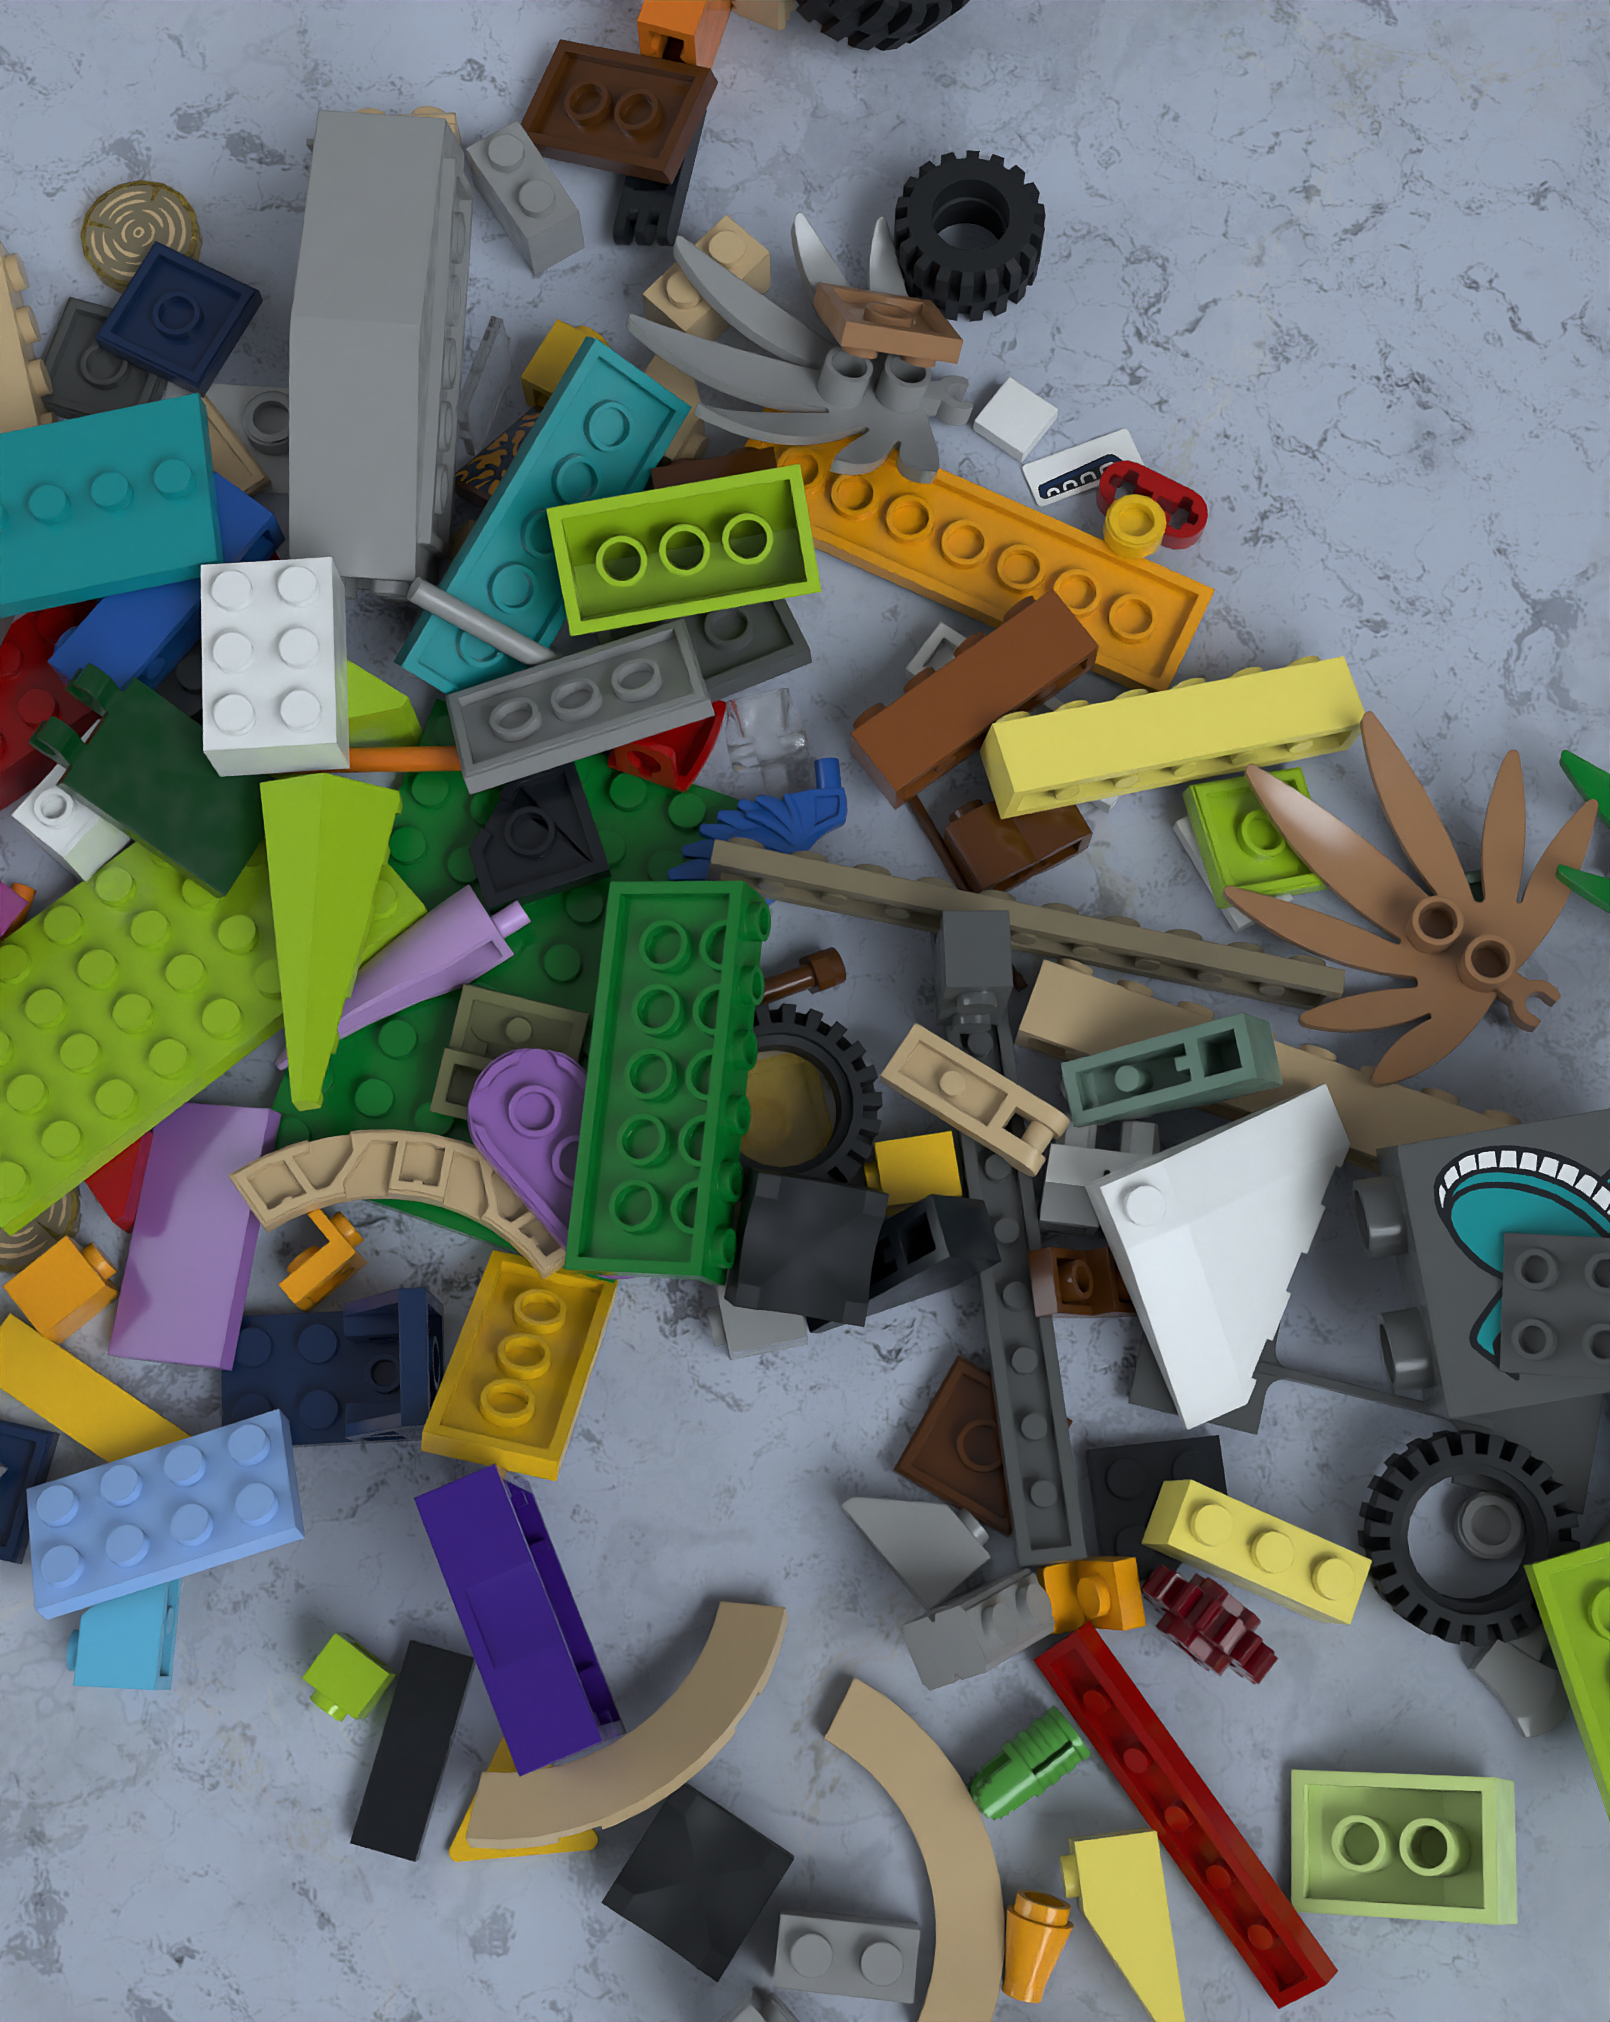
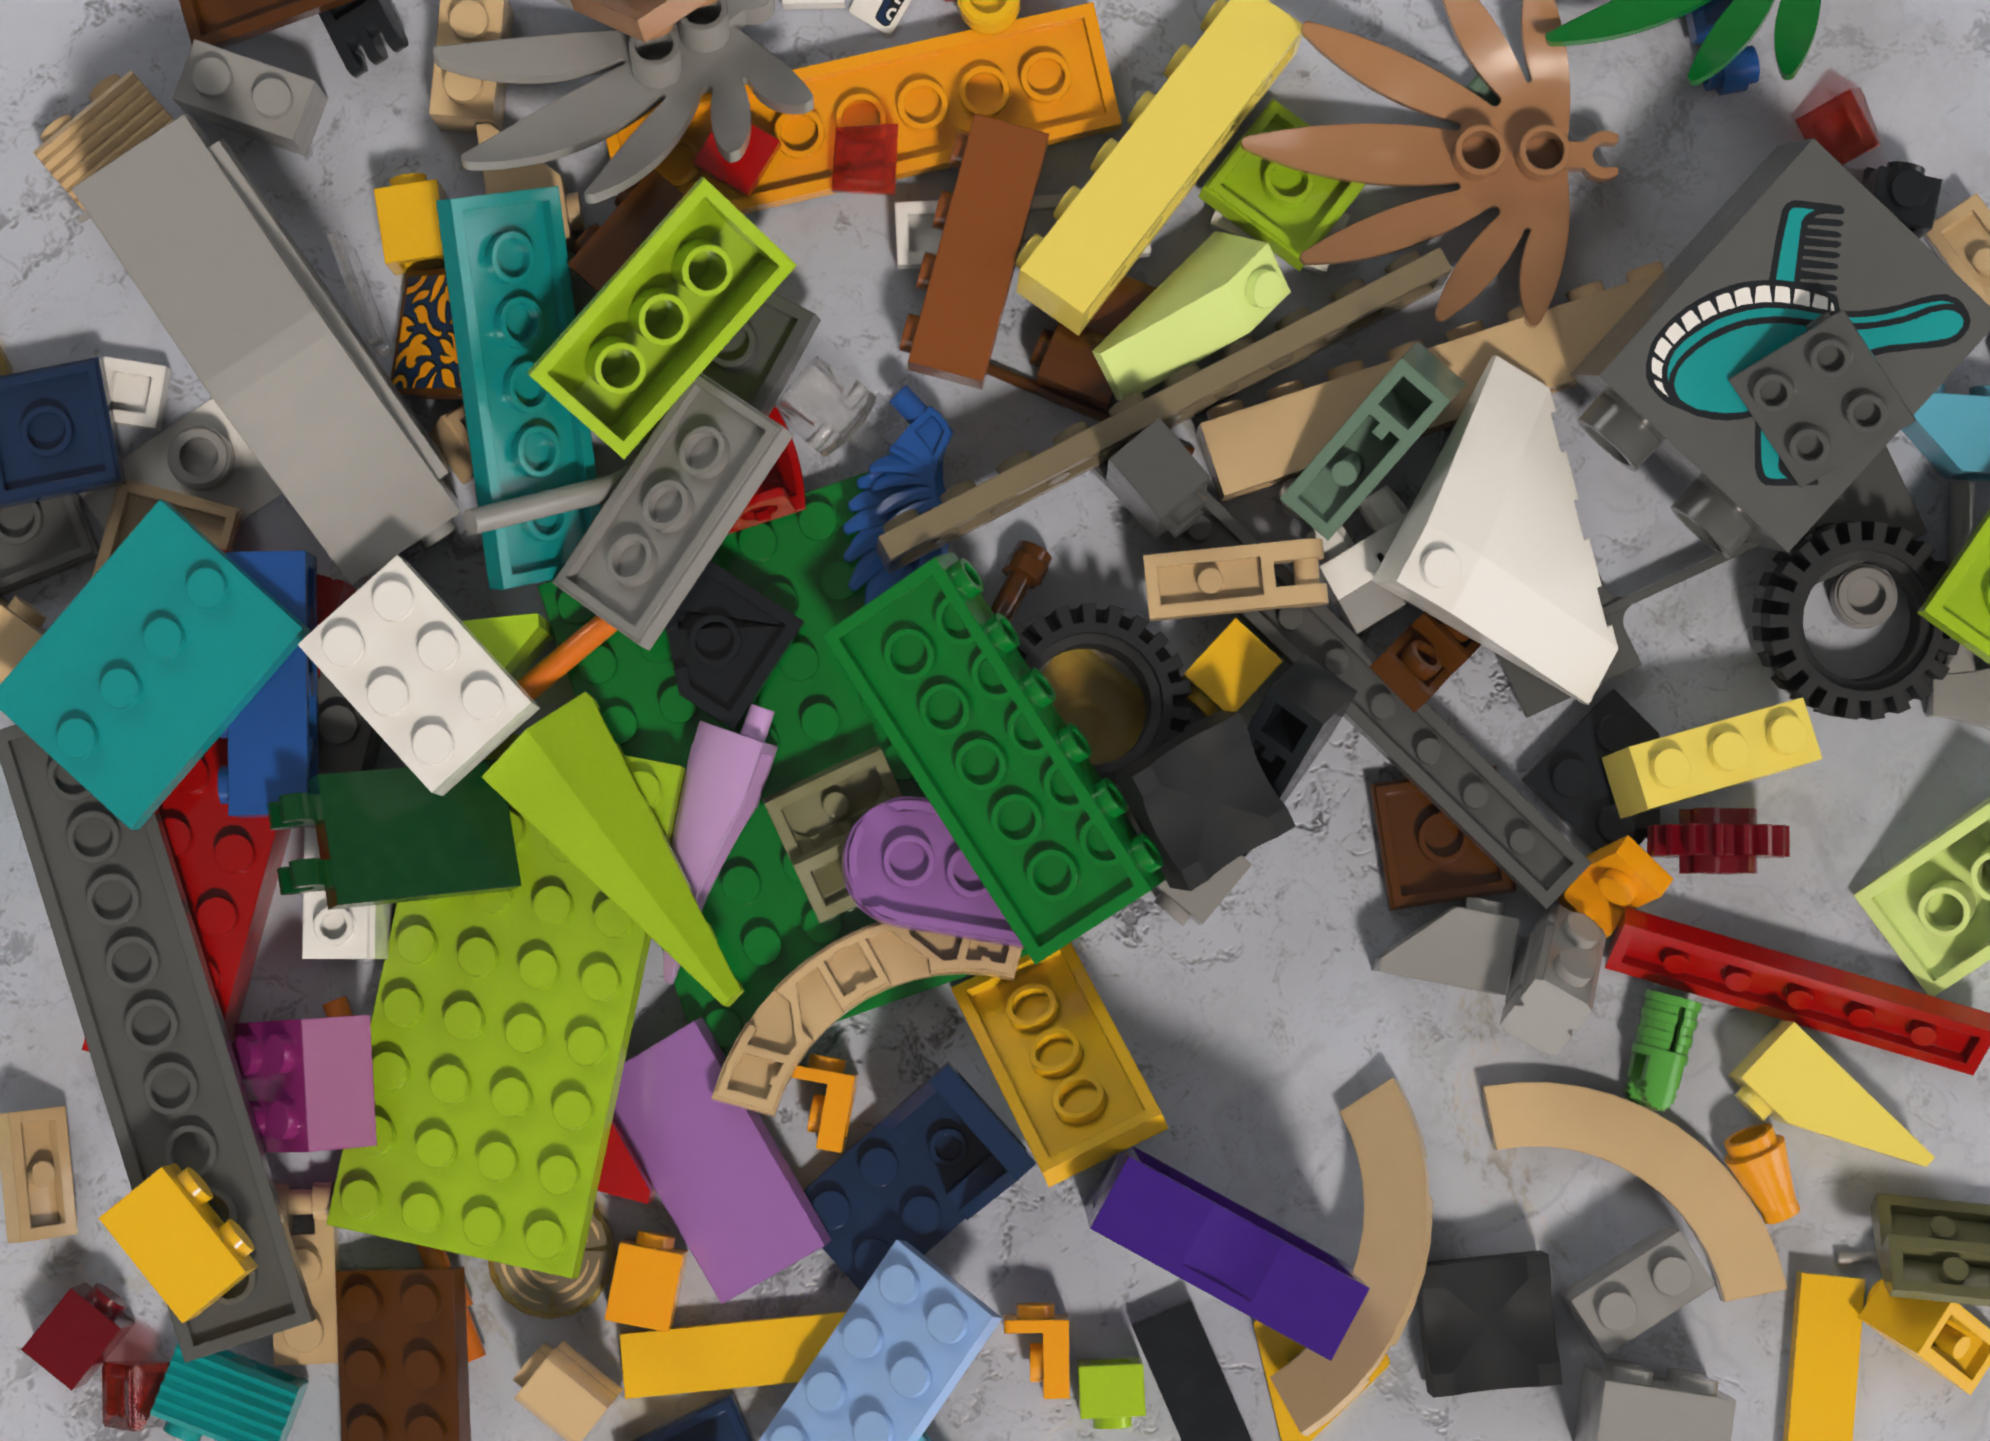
camera: 45 degrees left, 10 degrees up
(264, 344) = (137, 392): none -> white tile
(324, 1611) = (1050, 1358): none -> light orange bracket
(848, 499) = (745, 173): none -> red tile
(945, 571) = (866, 159): none -> clear red slope
(1104, 871) = (1193, 313): none -> yellowish green slope

